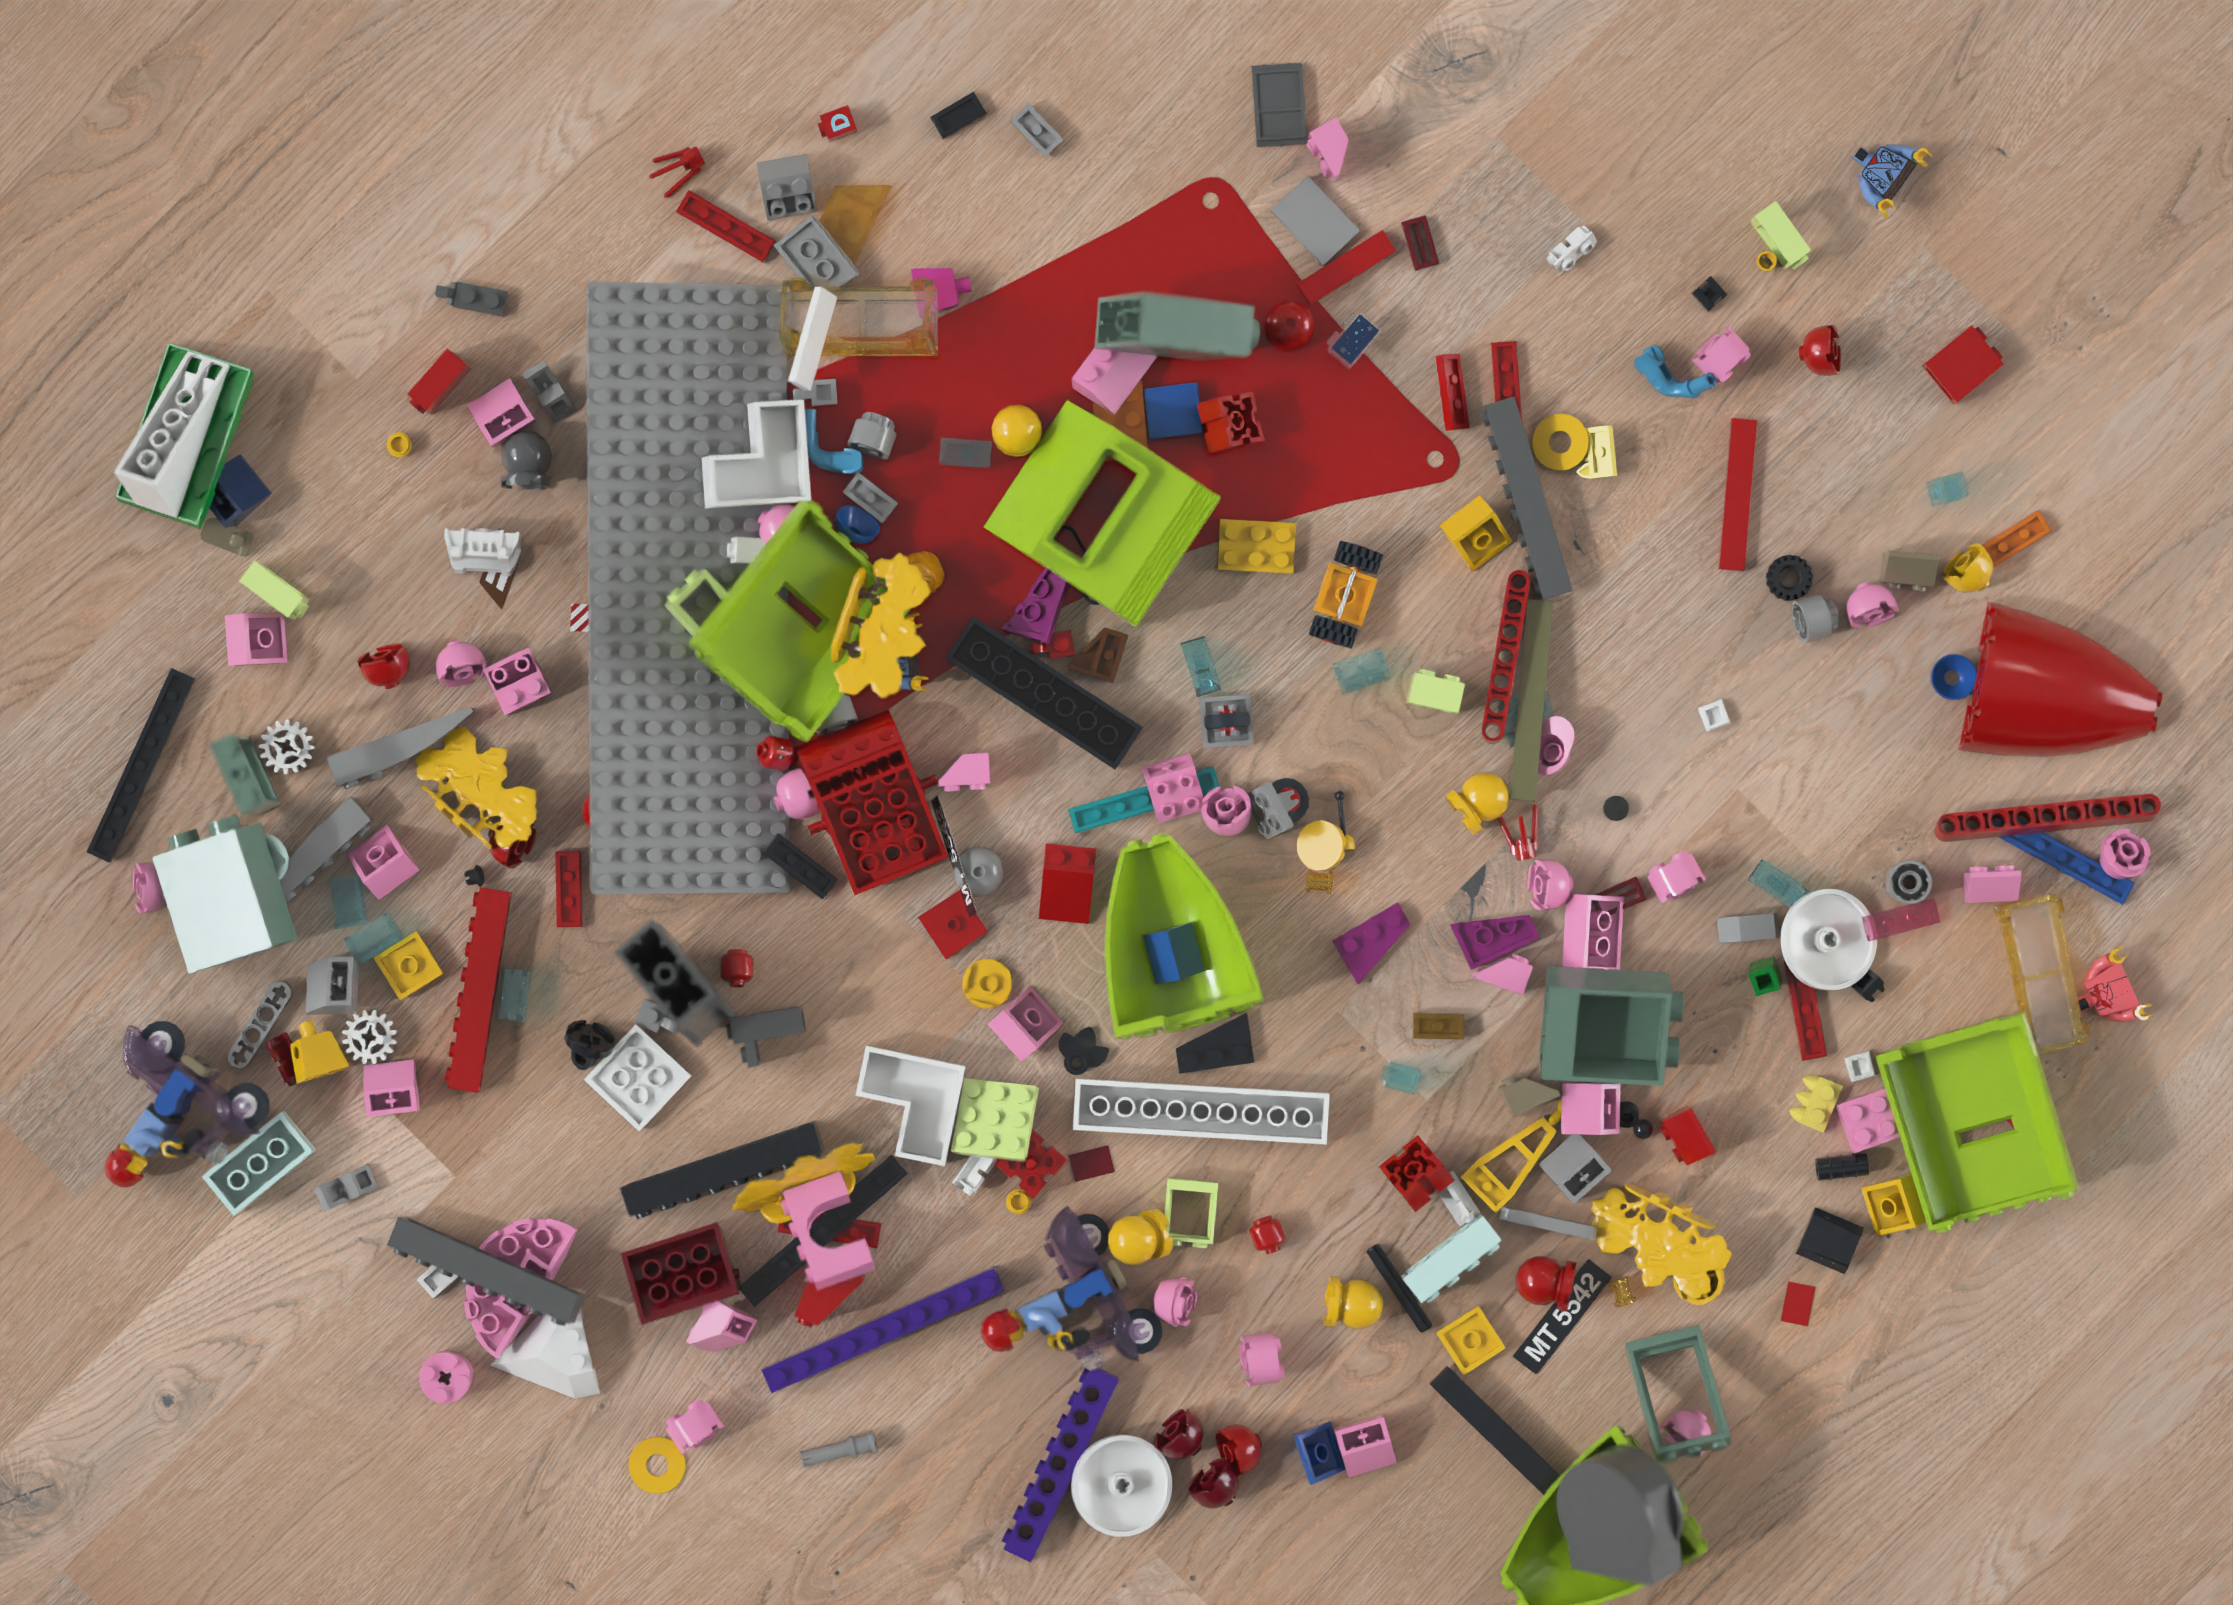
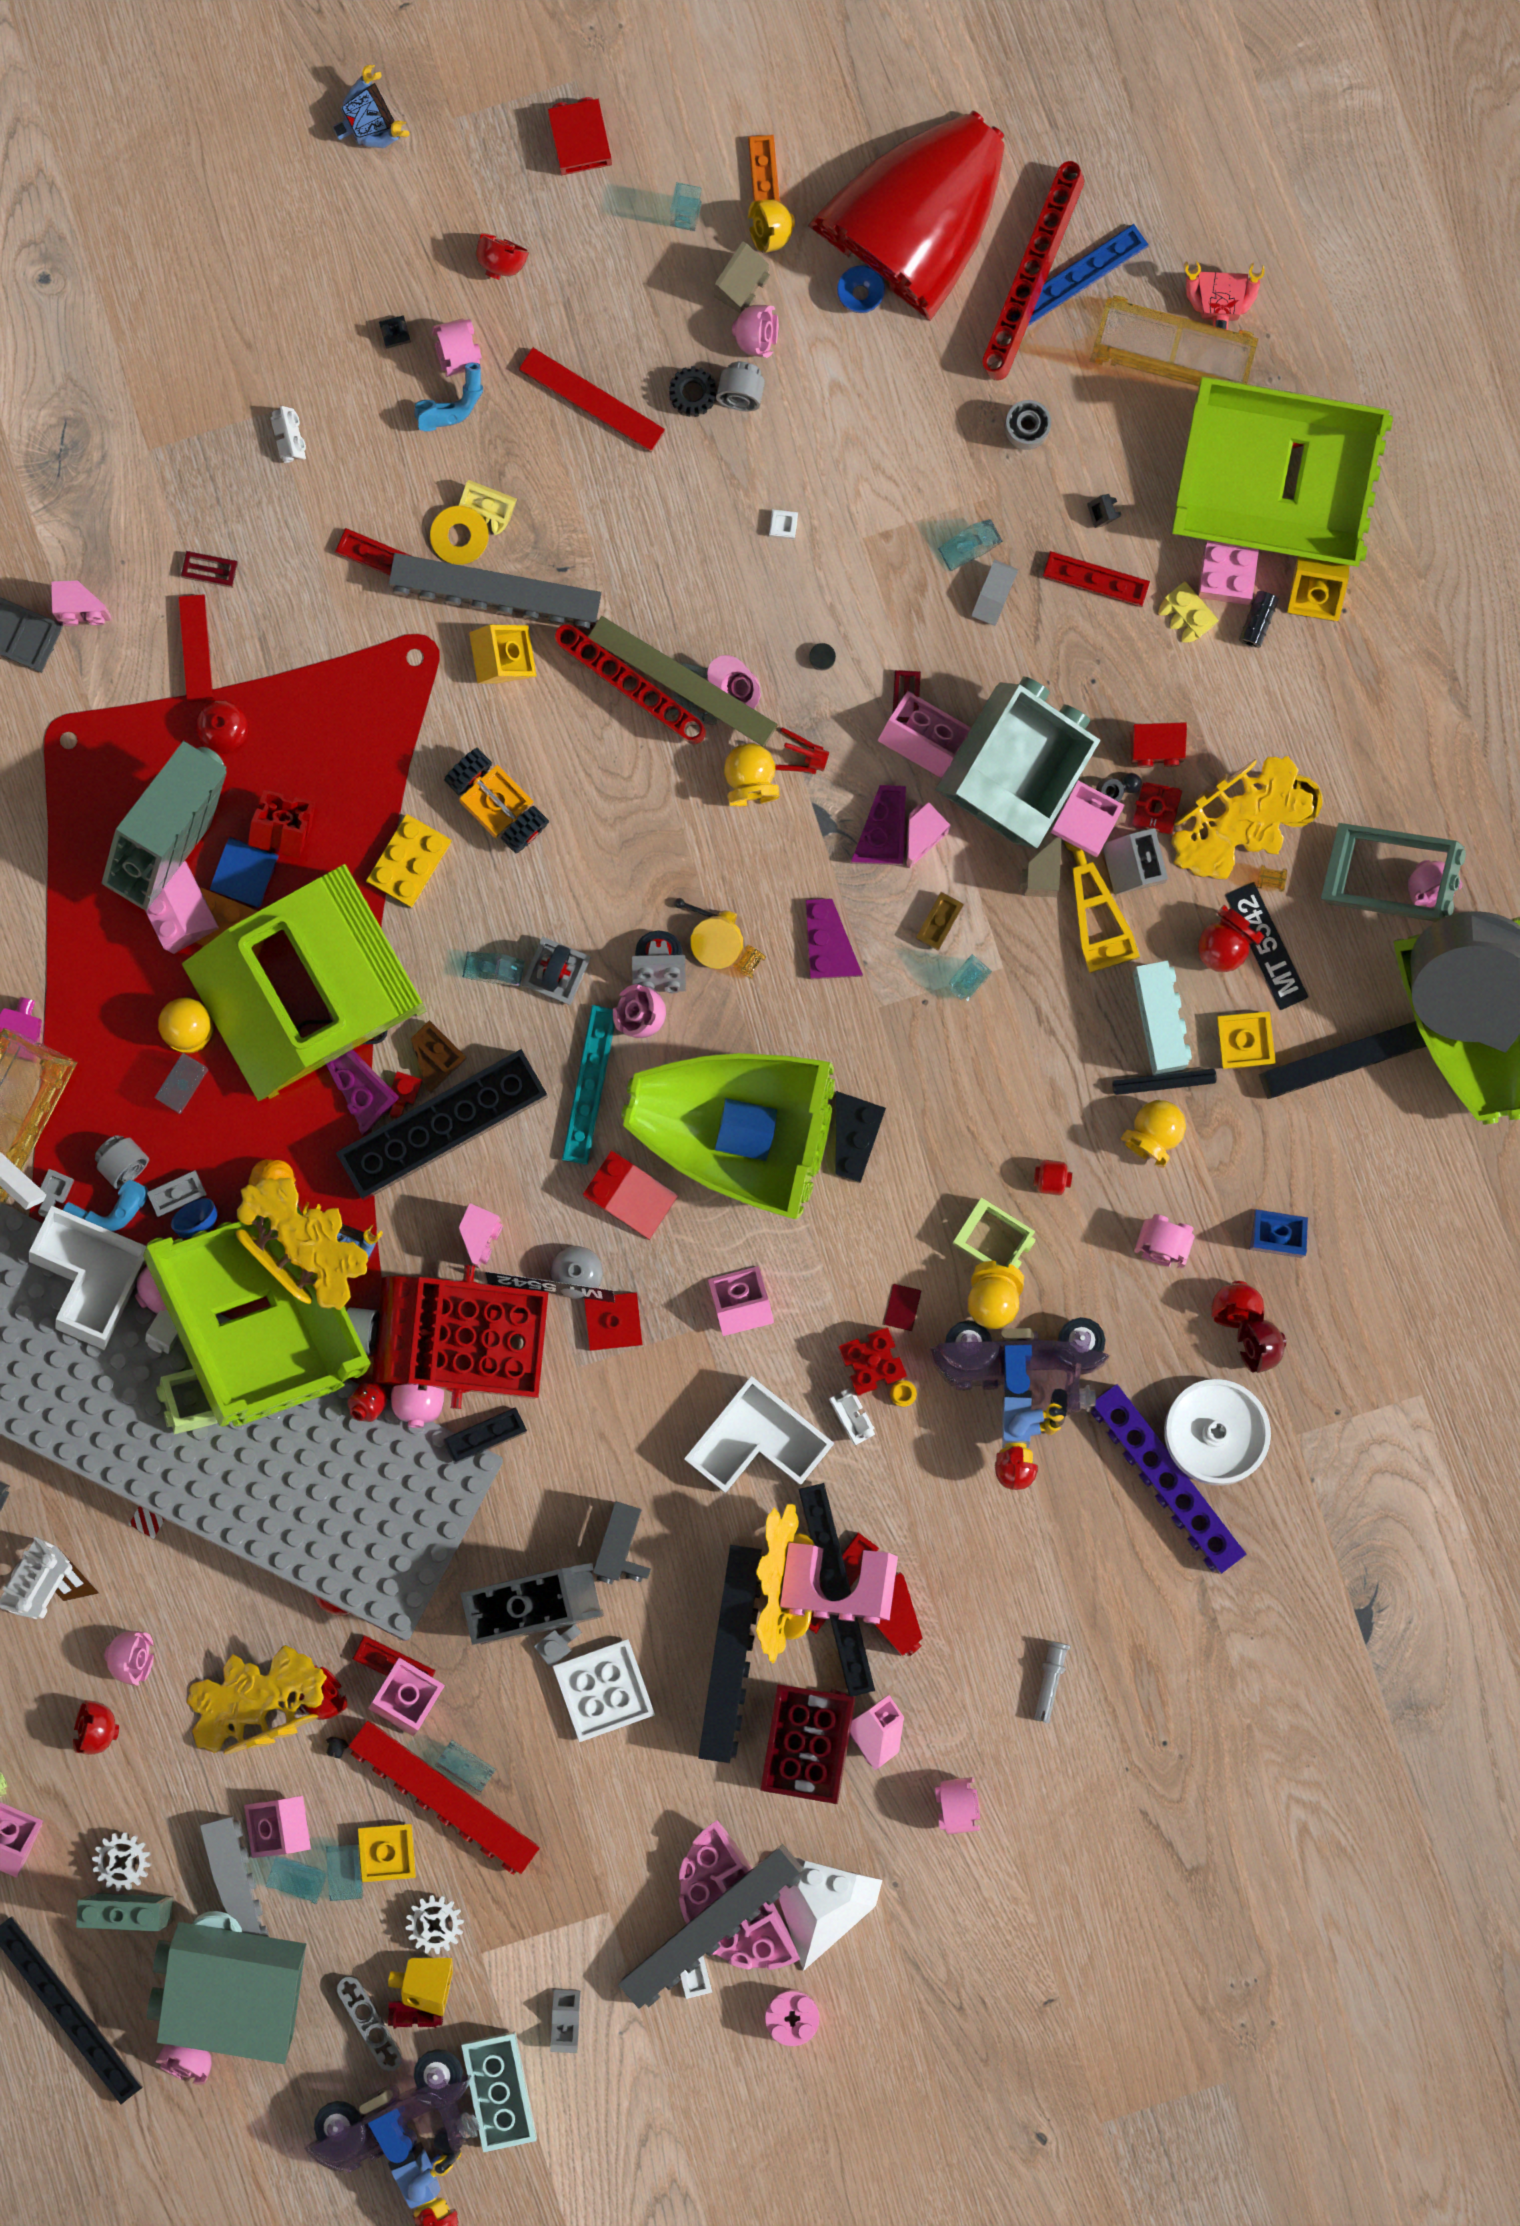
camera: 70 degrees left, 5 degrees down
(332, 986) = (368, 1935): light grey slope -> none
(382, 754) = (177, 1763): light grey slope -> none
(390, 1088) = (493, 1929): bright pink slope -> none
(517, 681) = (174, 1611): bright pink slope -> none
(546, 914) = (406, 1697): none -> bright pink slope
(588, 1041) = (545, 1718): black tile -> none
(643, 1478) = (957, 1861): yellow gear -> none
(737, 967) = (549, 1543): red head -> none
(883, 1329) = (958, 1581): dark purple brick -> none
(987, 983) = (685, 1318): yellow tile -> none
(994, 1120) = (815, 1374): yellowish green plate -> none
(1082, 1047) = (792, 1258): black plate -> none
(1173, 787) = (593, 1050): bright pink bracket -> none
(1175, 1300) = (1070, 1293): bright pink cone -> none
(1181, 1436) = (1199, 1354): dark red cylinder -> none
(1201, 1111) = (905, 1179): white brick -> none
(1315, 220) = (138, 653): light grey tile -> none
(1354, 339) = (265, 673): brick -> none
(1361, 671) = (574, 823): clear light blue hinge -> none
(1365, 1445) = (1295, 1187): bright pink slope -> none
(1416, 1173) = (1066, 1009): red brick -> none
(1435, 692) = (629, 764): yellowish green brick -> none
(1452, 392) = (361, 609): red plate -> none
(1459, 1202) = (1108, 986): white hinge -> none
(1548, 1222) = (1173, 913): light grey beam -> none
(1549, 884) = (860, 752): bright pink cylinder -> none
(1637, 1150) = (1149, 796): none -> red piece
(1676, 877) = (914, 631): bright pink brick -> none
(1762, 264) = (389, 258): yellow hinge -> none
(1765, 976) = (1047, 598): green brick -> none
(1781, 236) = (376, 238): yellowish green window -> none
(1798, 1303) = (1364, 724): red sticker -> none
(1827, 940) = (1043, 523): white dish -> none
(1829, 1240) = (1321, 665): black slope -> none
(1859, 1066) = (1174, 557): white tile -> none
(1901, 919) = (1058, 450): clear pink tile -> none
(1991, 886) = (1070, 352): bright pink slope -> none
(2124, 854) = (1103, 218): bright pink cone -> none

